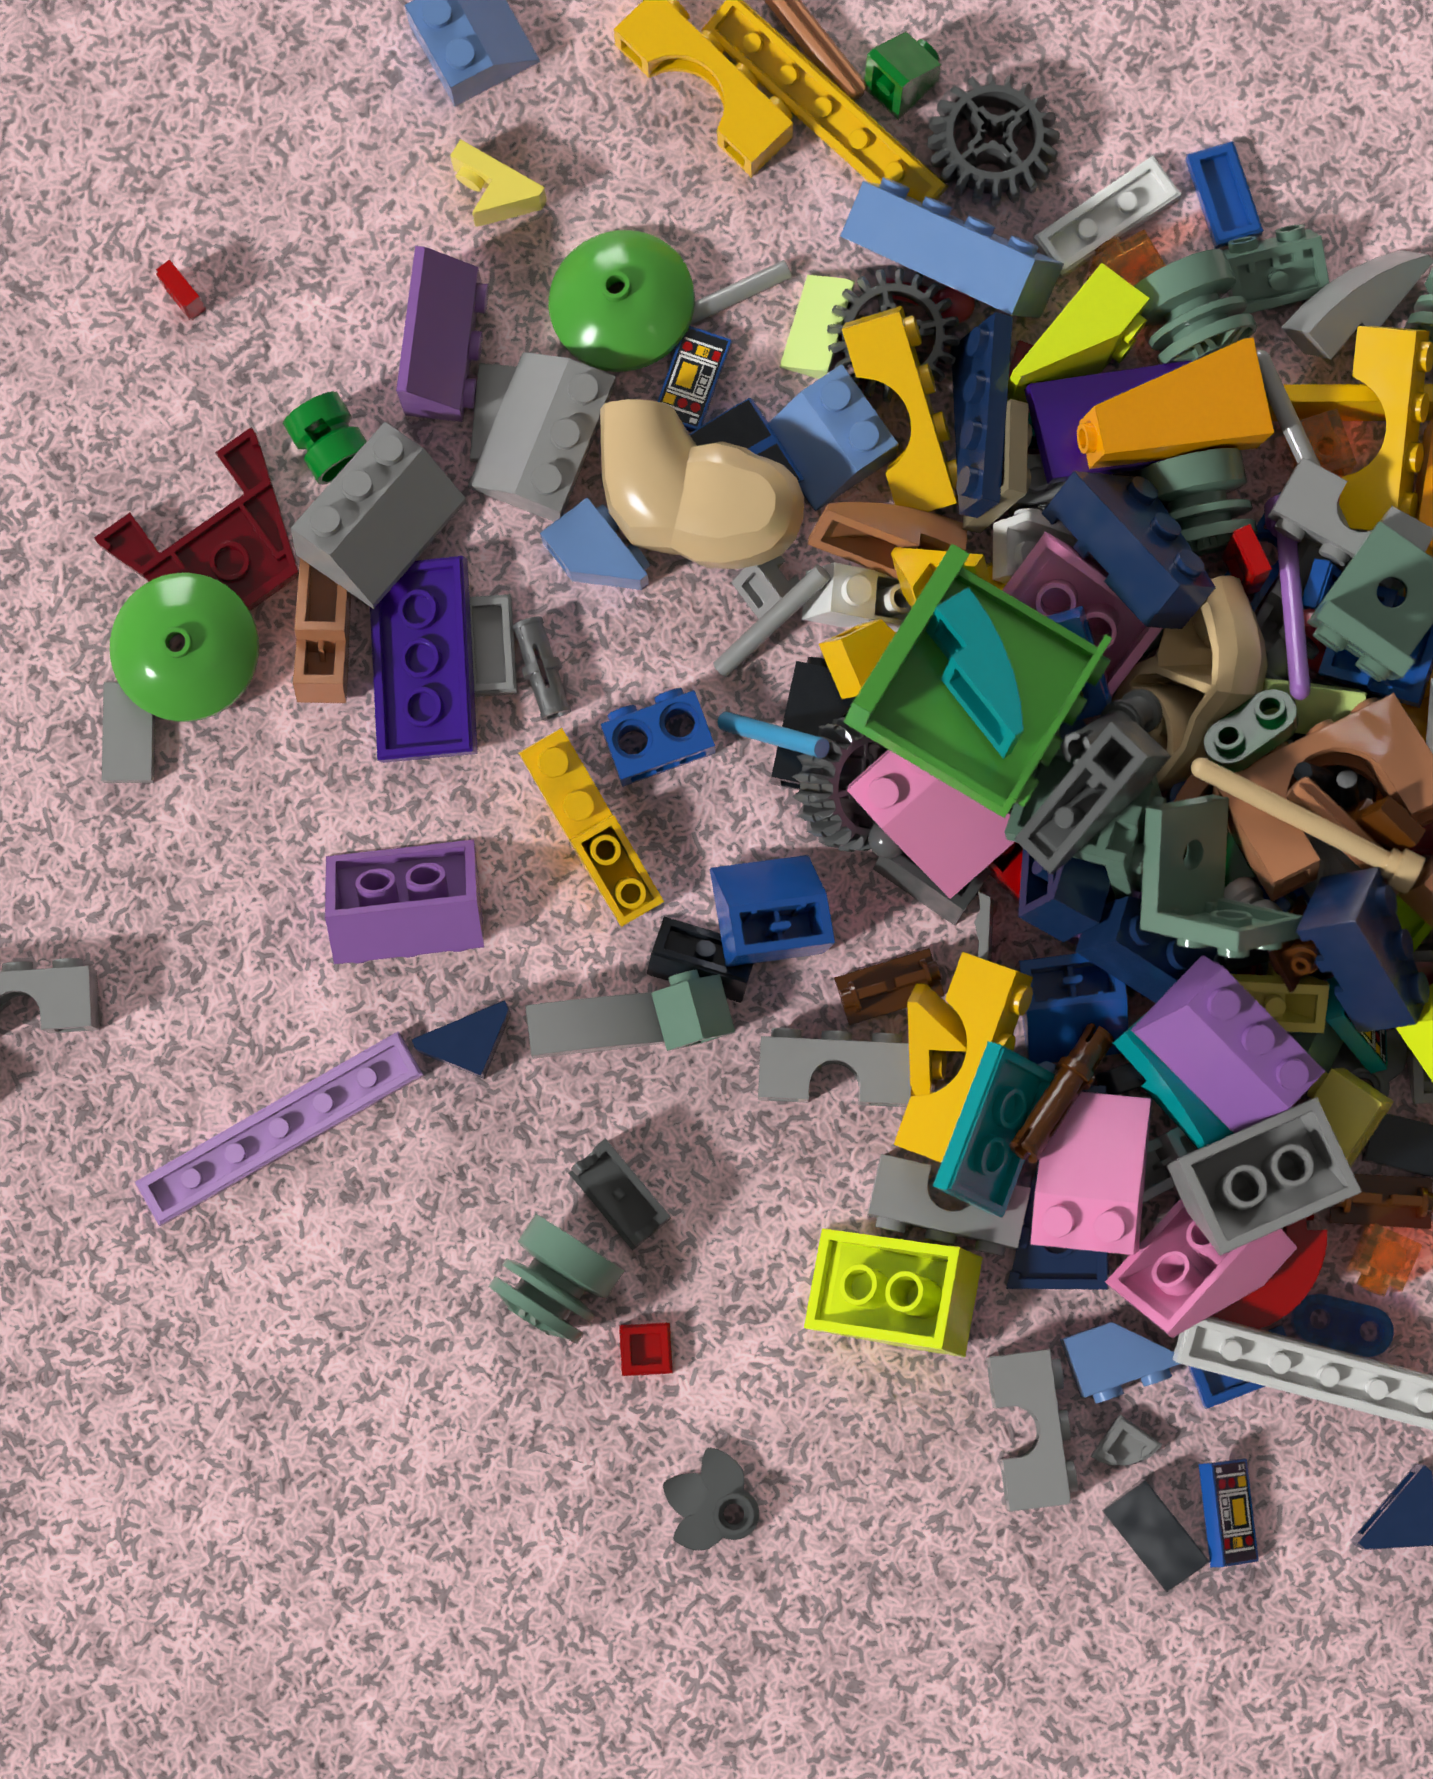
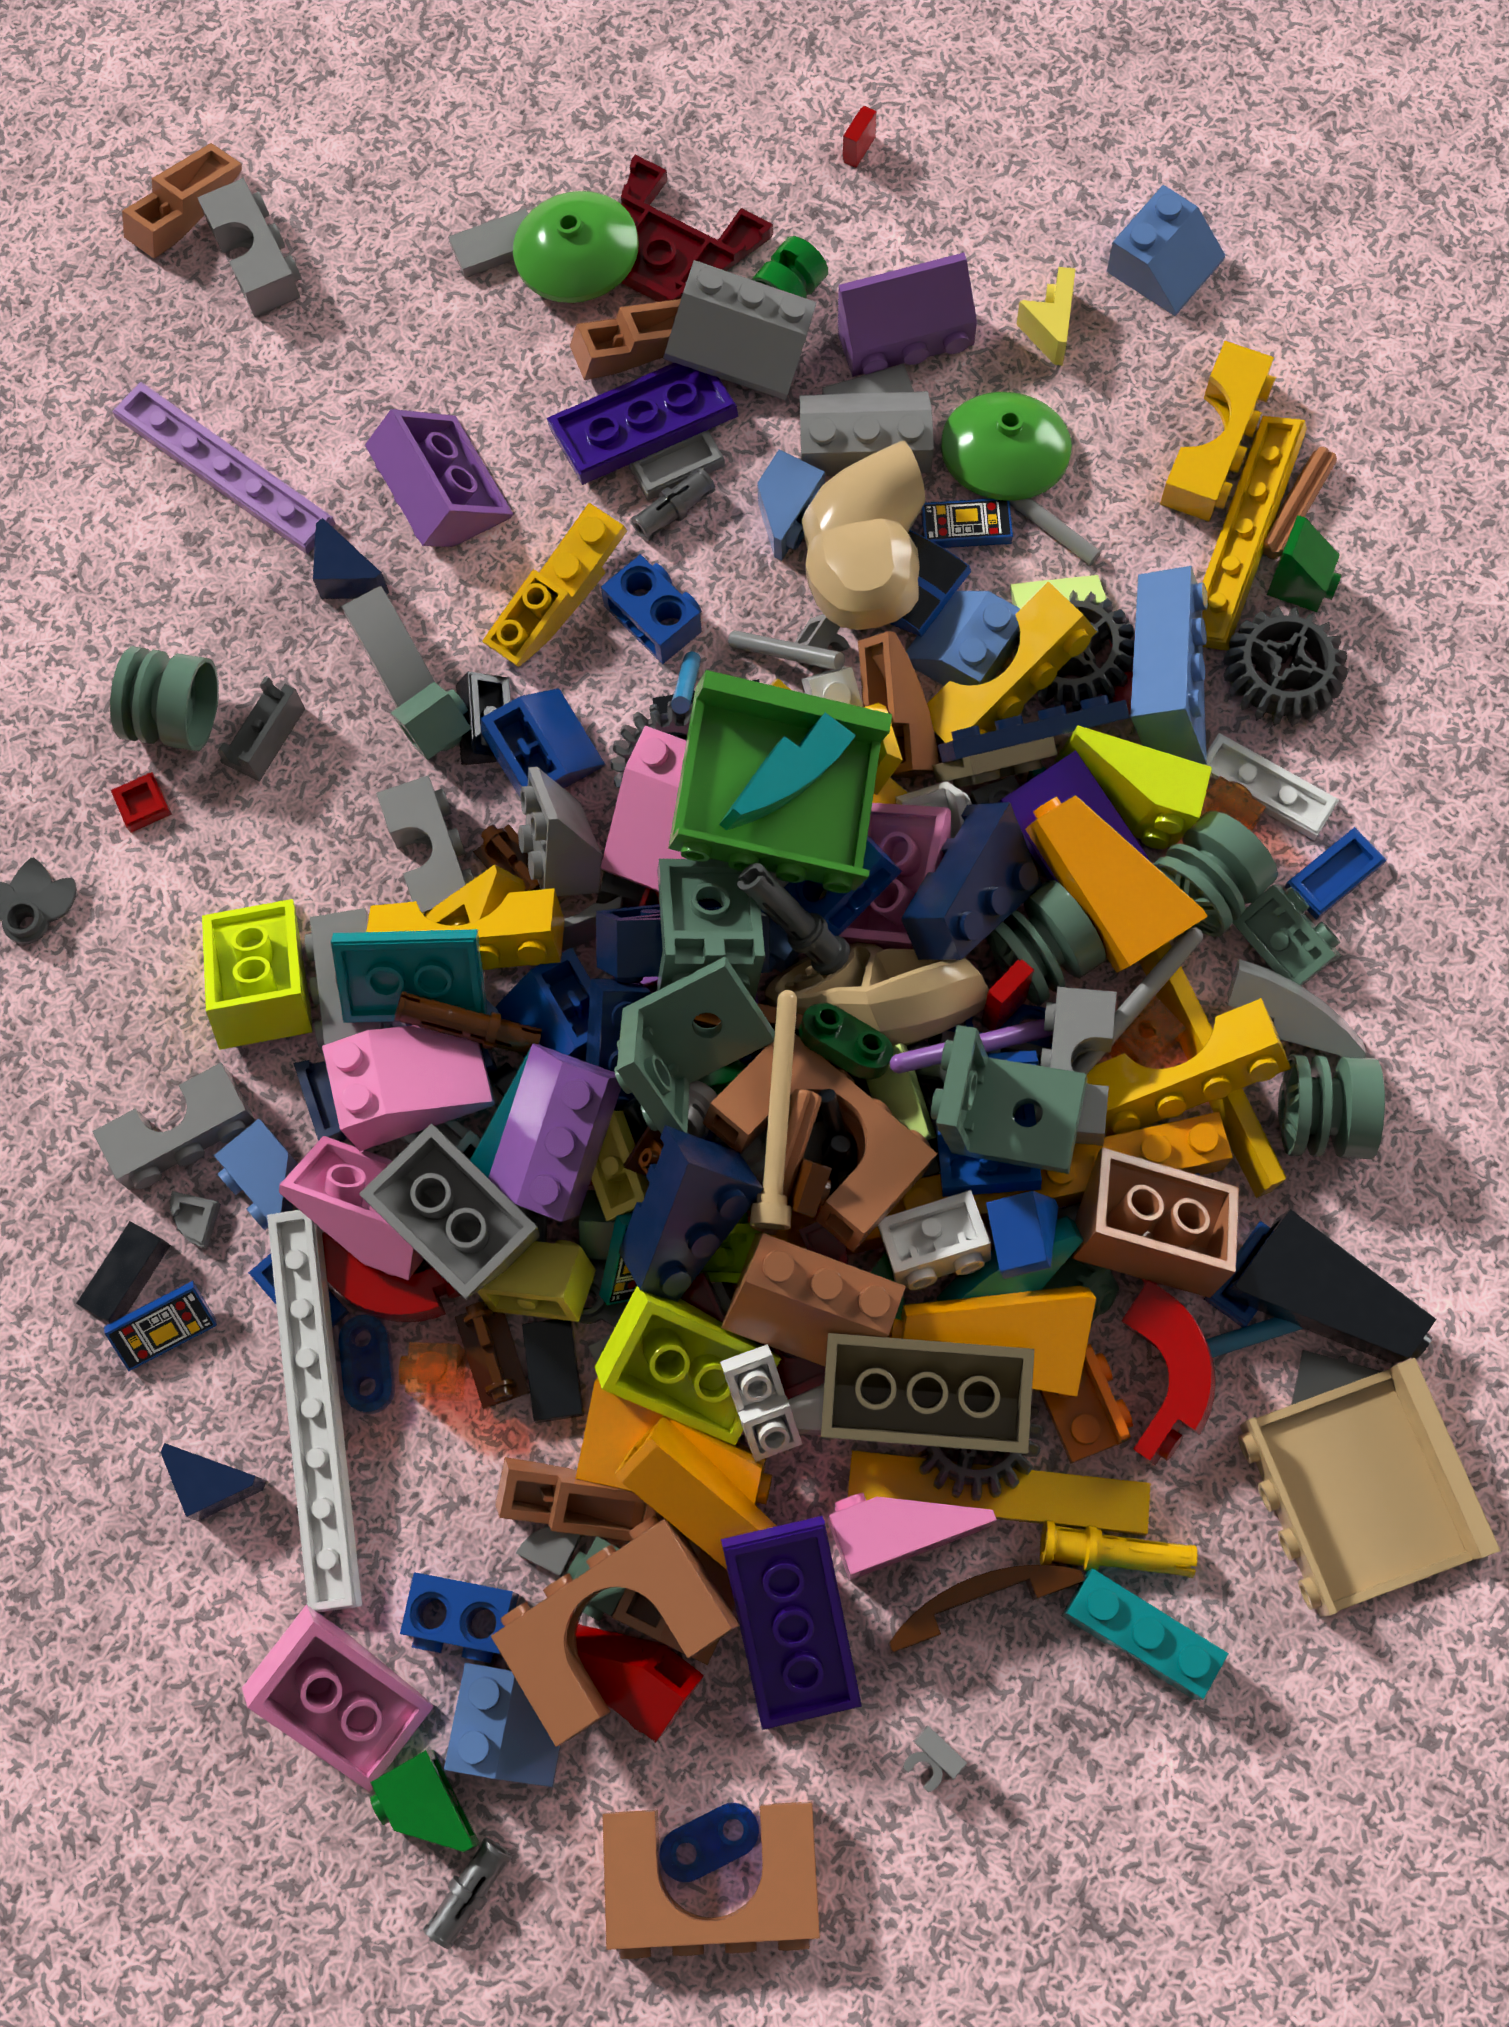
camera: 70 degrees right, 10 degrees down
(896, 931) = (557, 838): none -> light grey slope
(1092, 793) = (725, 906): dark grey slope -> none

